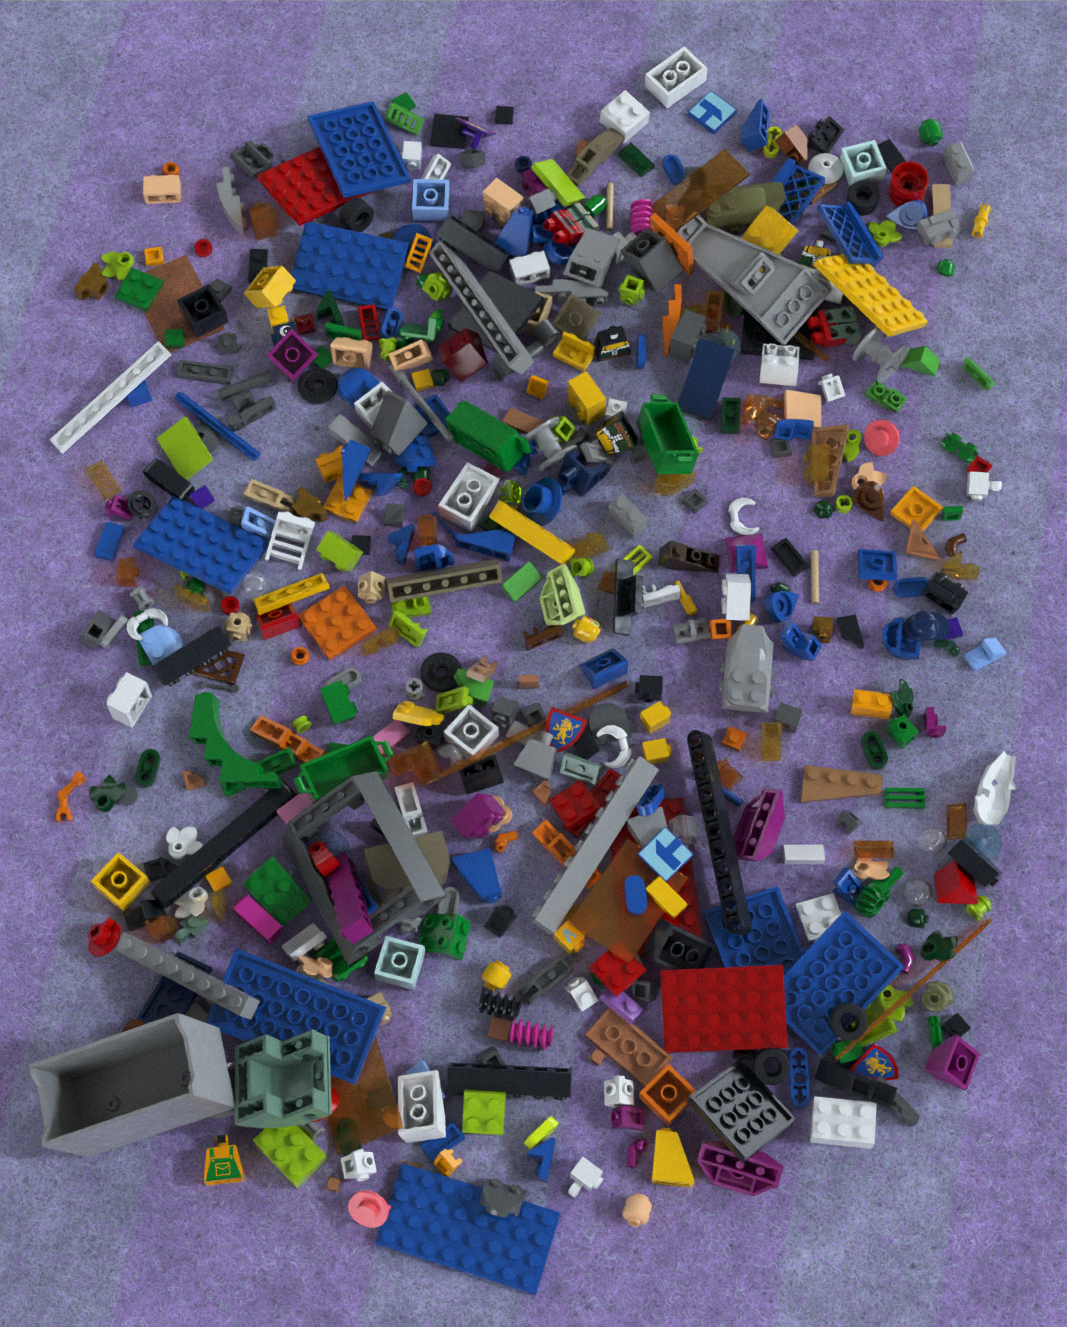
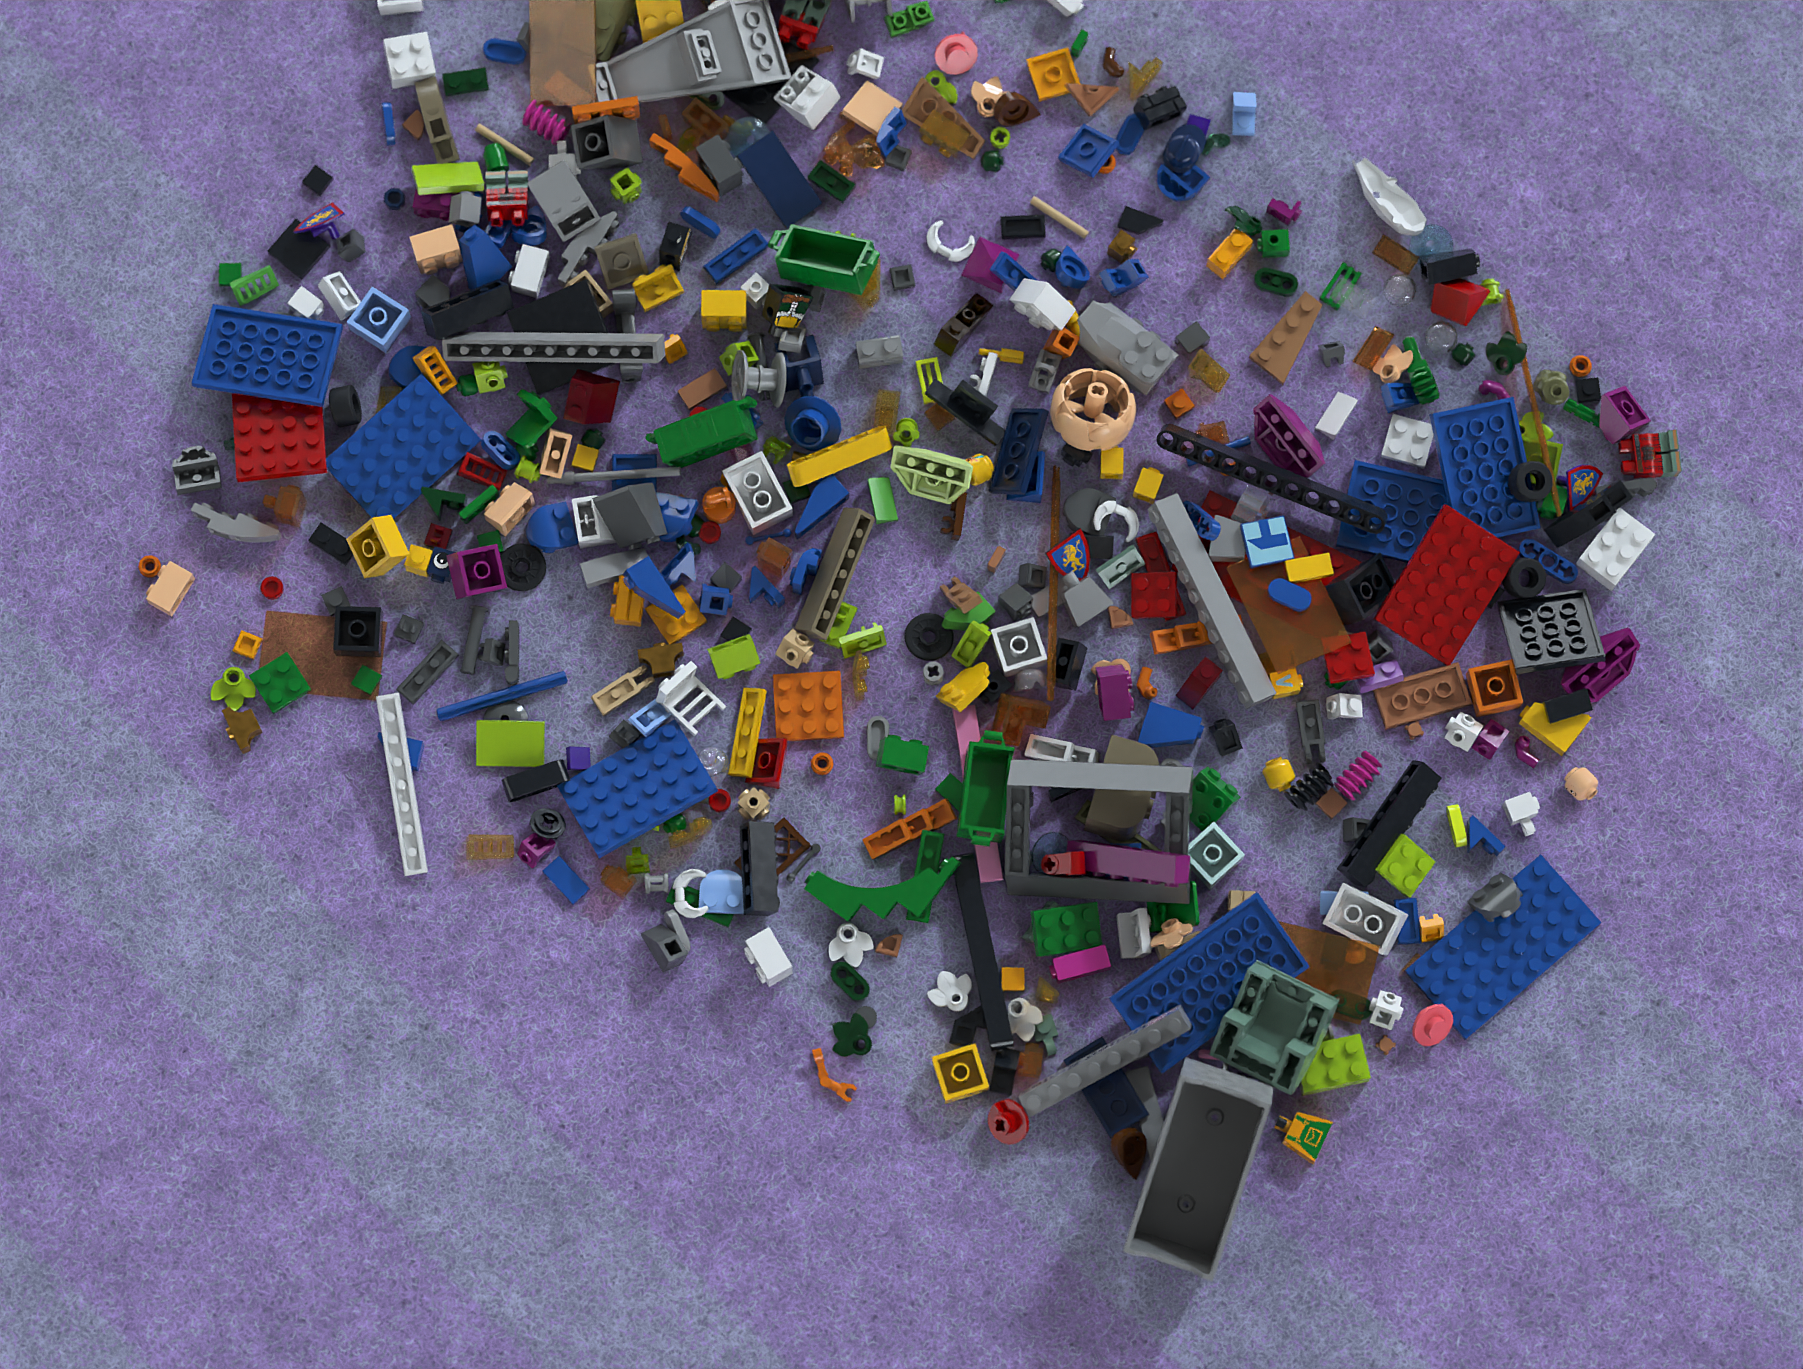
camera: 60 degrees left, 10 degrees up
(149, 577) = (637, 862): none -> clear neon green tile
(173, 754) = (850, 948): none -> white plate
(370, 512) = (712, 606): none -> blue brick
(442, 477) = (719, 505): none -> orange piece
(529, 876) = (1199, 682): none -> dark red slope
(572, 131) = (388, 124): none -> blue tile
(618, 647) = (1018, 451): none -> dark blue tile
(631, 387) = (736, 256): none -> blue tile
(689, 1157) = (1567, 705): none -> black tile
(691, 292) = (665, 127): none -> clear orange tile
(696, 667) = (1099, 389): none -> light nougat wheel
(901, 812) = (1354, 299): none -> clear slope
(938, 1105) = (1651, 455): none -> hips
(973, 1004) = (1583, 360): none -> orange plate

